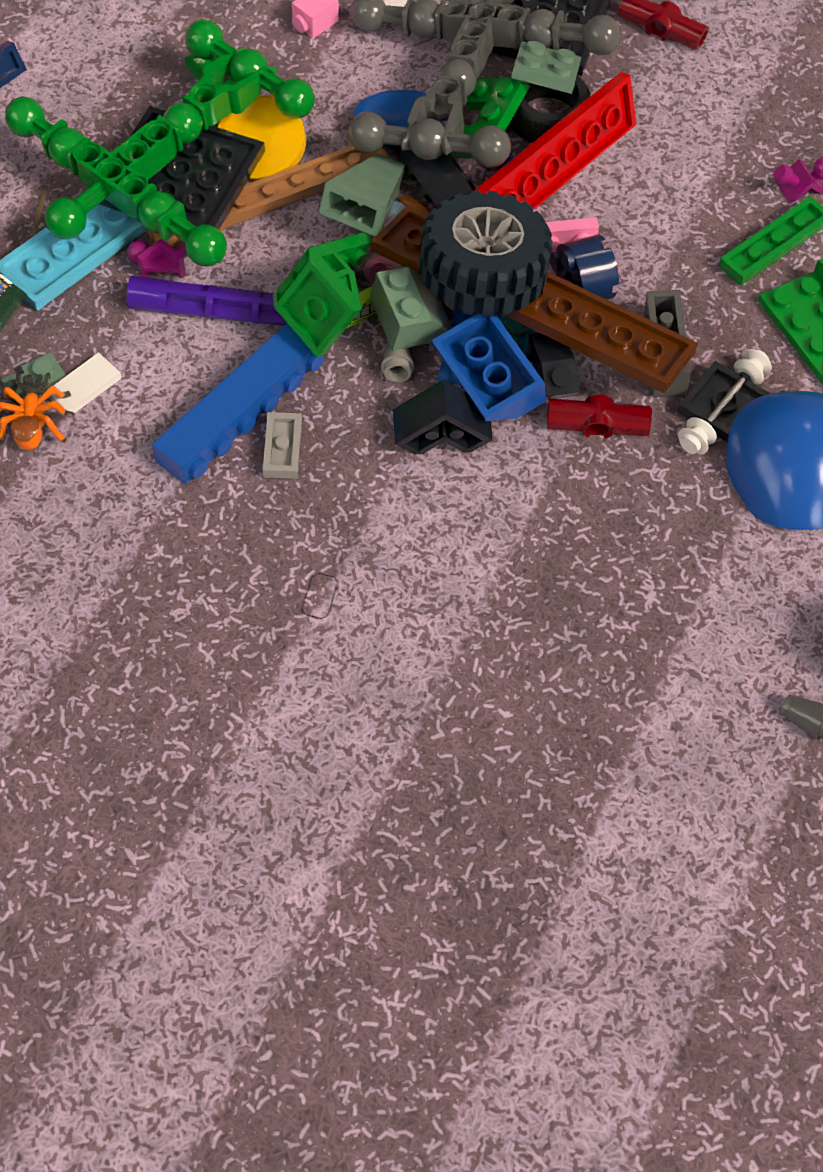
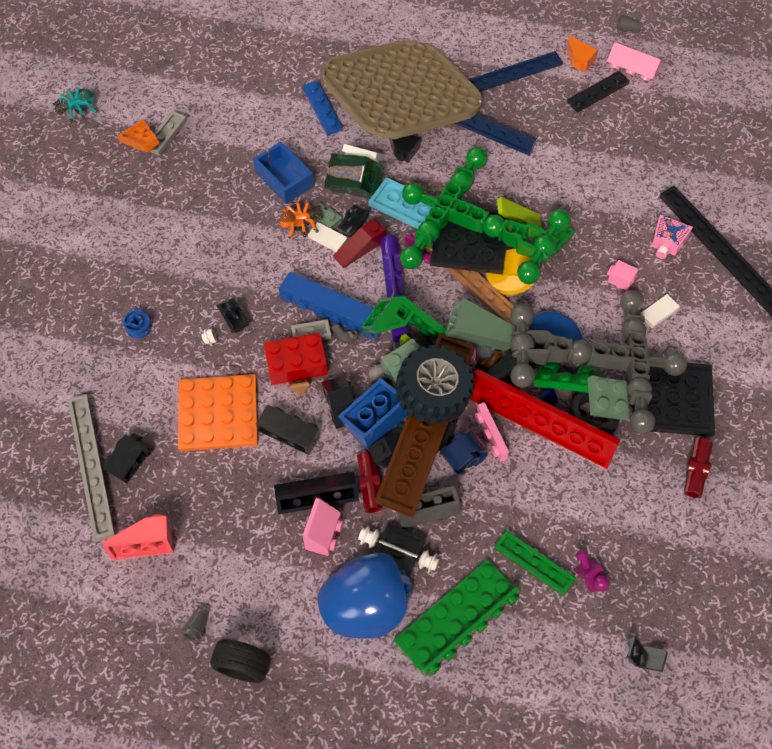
camera: 80 degrees right, 0 degrees up
(72, 332) = (353, 221): none -> black hips
(122, 332) = (361, 243): none -> dark red slope
(156, 97) = (517, 212): none -> lime tile
(185, 733) = (134, 330): none -> blue wheel
(211, 556) = (233, 316): none -> black hips
(239, 607) = (209, 336): none -> white plate
(304, 398) = (344, 336): none -> dark grey arm
(335, 474) = (295, 358): none -> red brick
(391, 475) = (299, 386): none -> medium nougat slope
(403, 623) = (217, 413): none -> orange plate
(465, 851) = (91, 468): none -> light grey plate
(468, 778) = (127, 457): none -> black hinge
(472, 512) = (288, 429): none -> black brick
(607, 491) = (302, 494): none -> black brick
(647, 762) = (144, 538): none -> coral slope
(674, 495) = (322, 528): none -> bright pink slope

